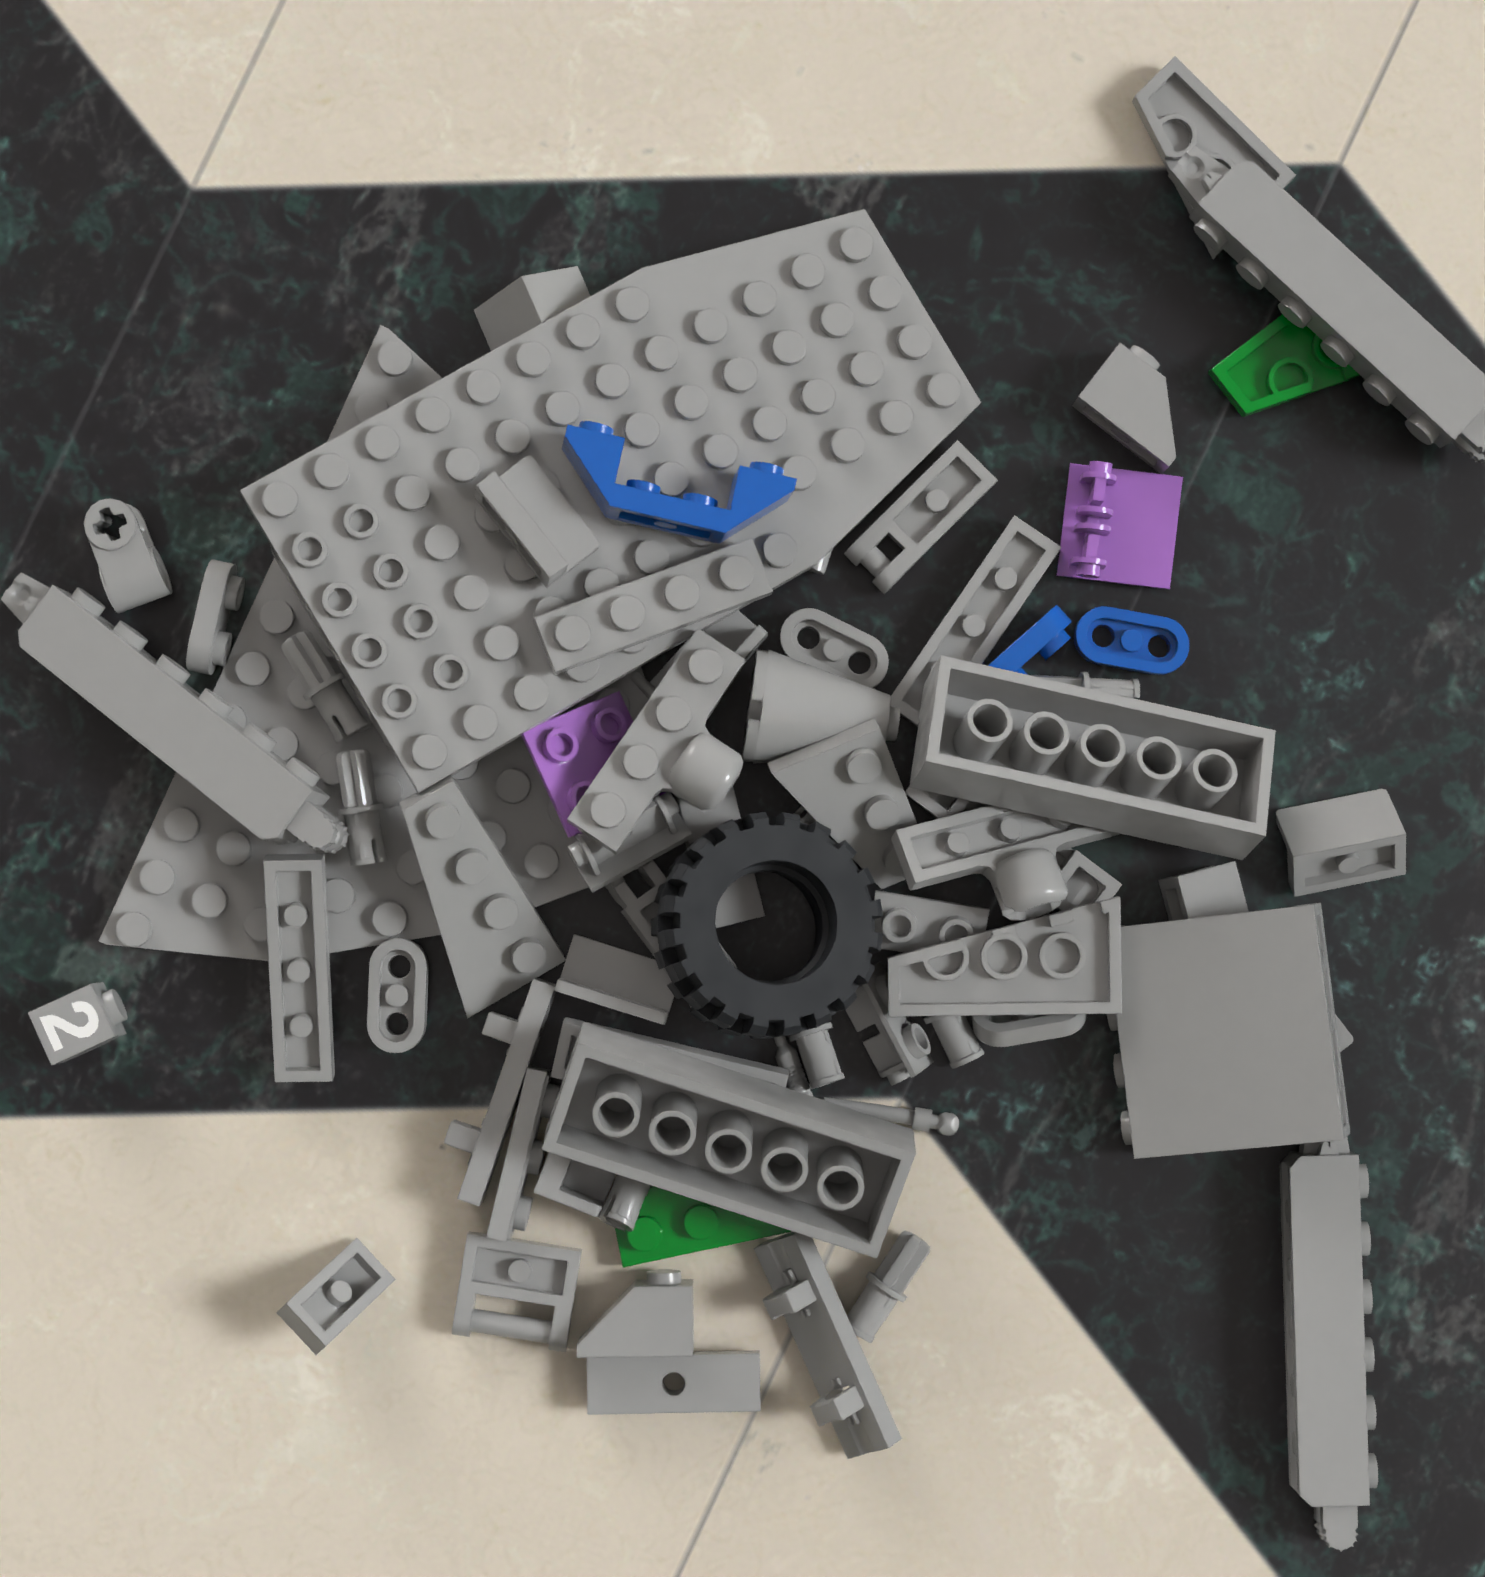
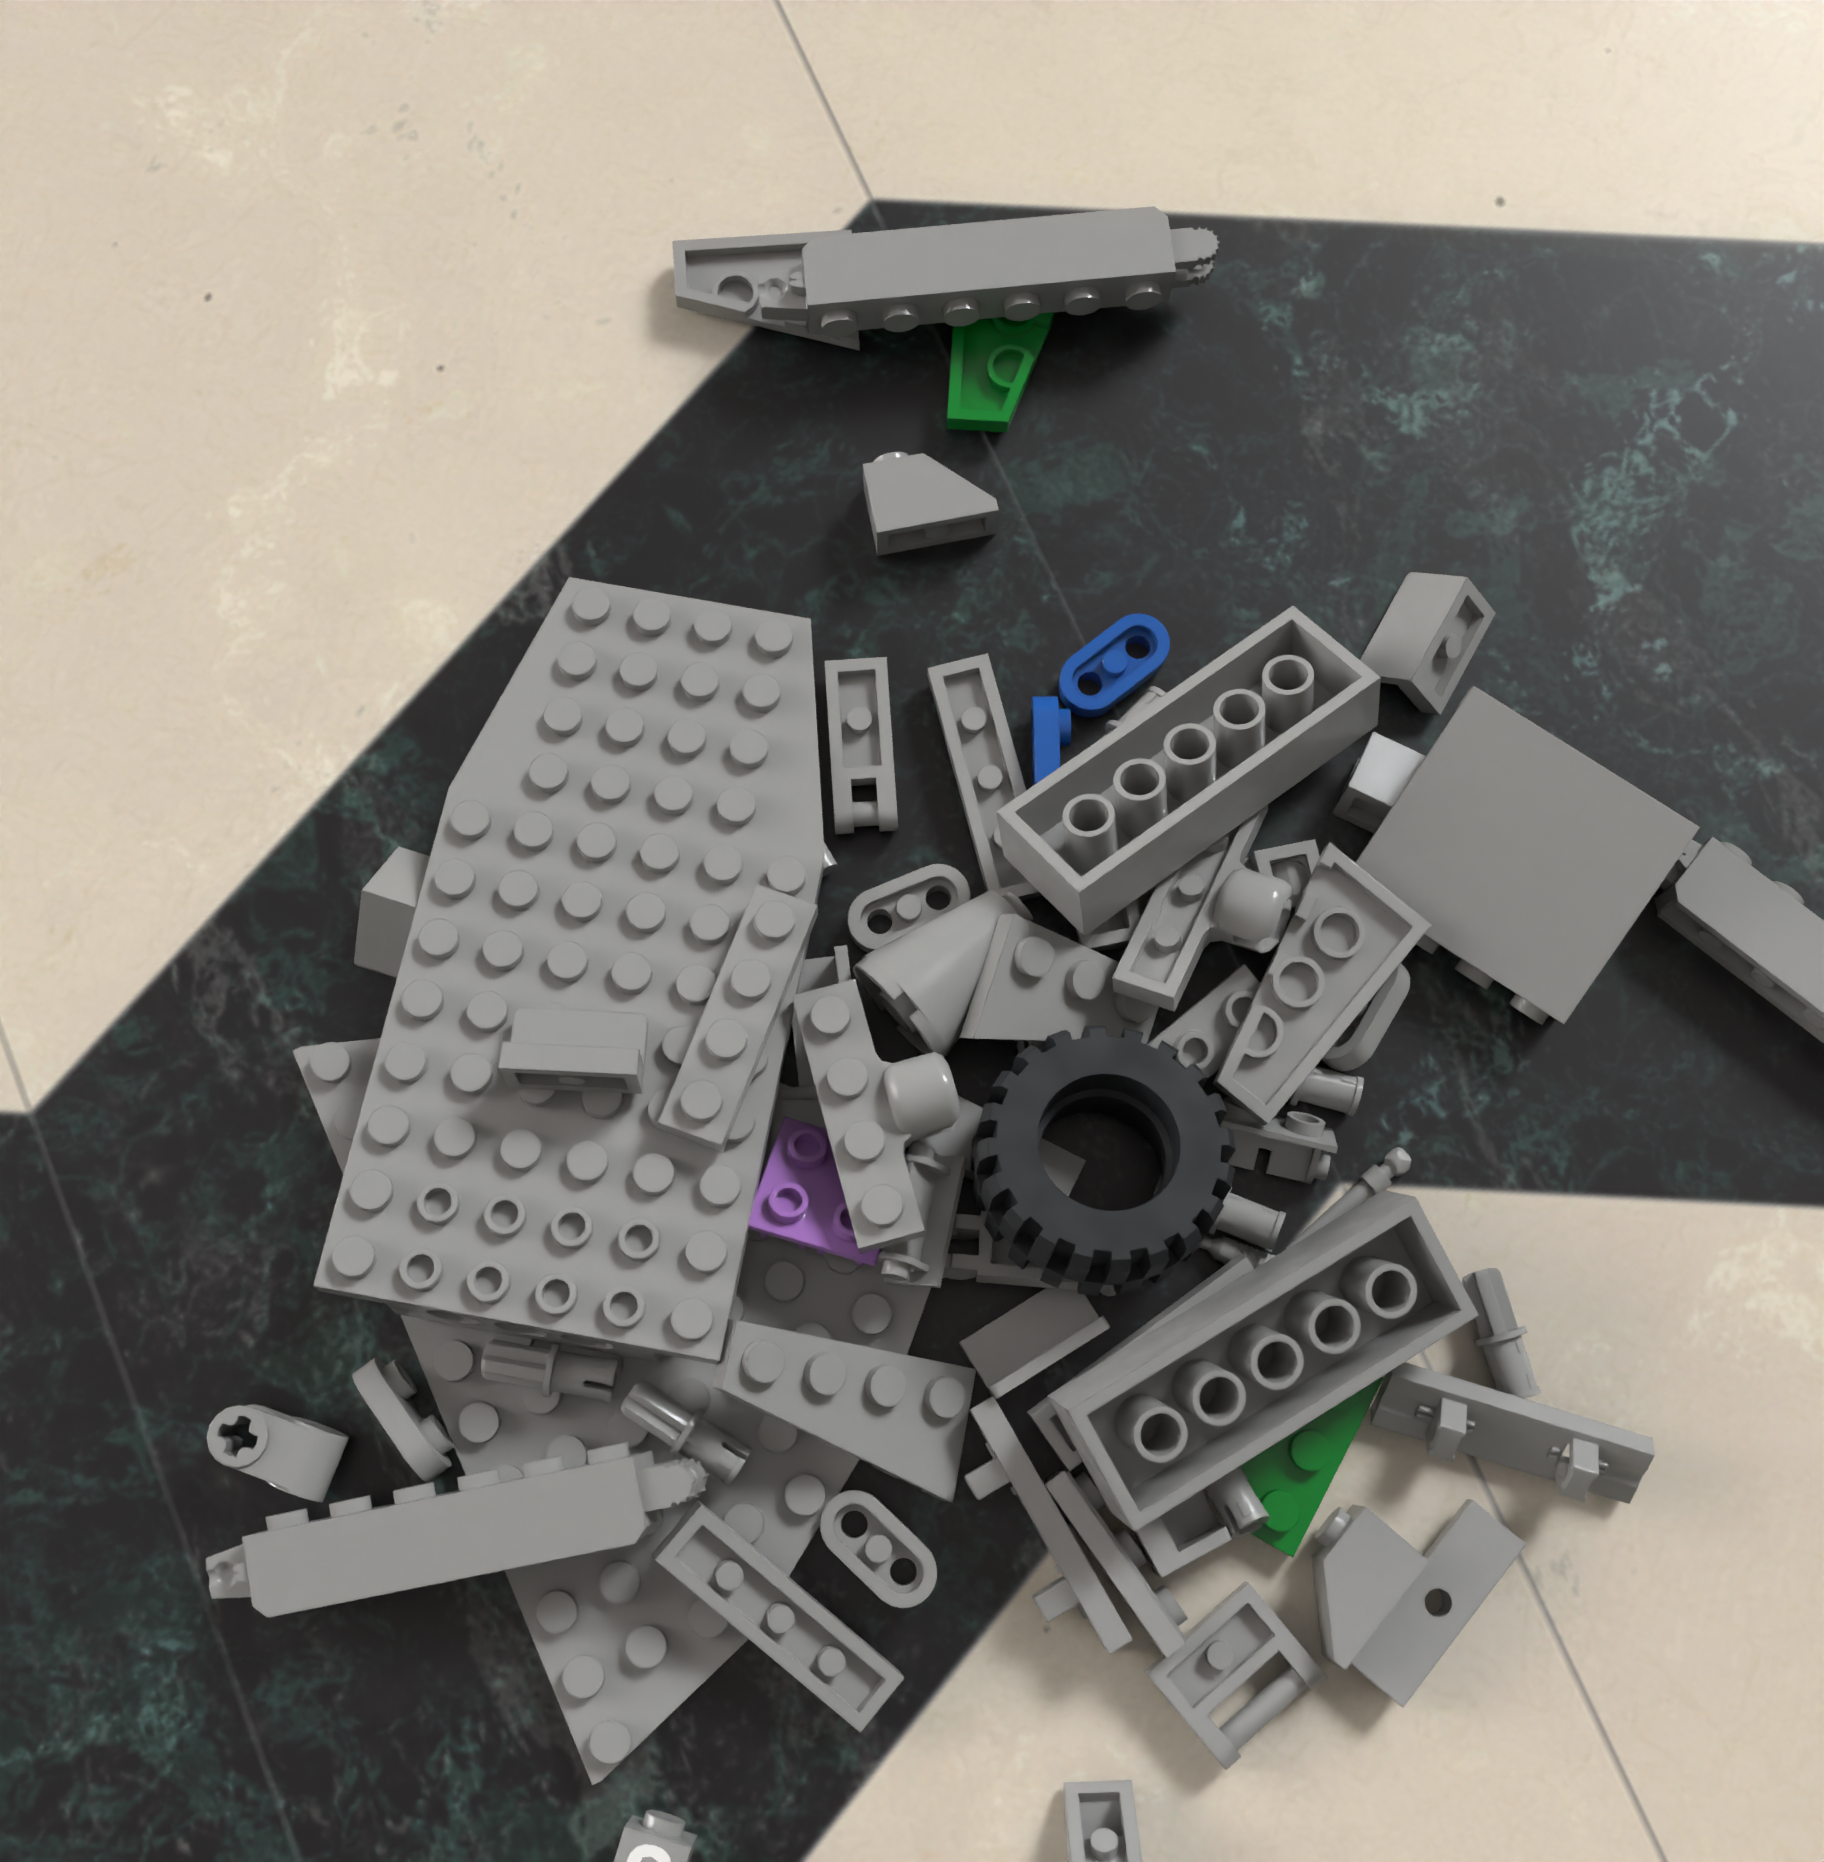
camera: 50 degrees left, 10 degrees down
(596, 459) = (573, 955): blue slope -> none
(1119, 525) = (1009, 597): medium lavender hinge -> none

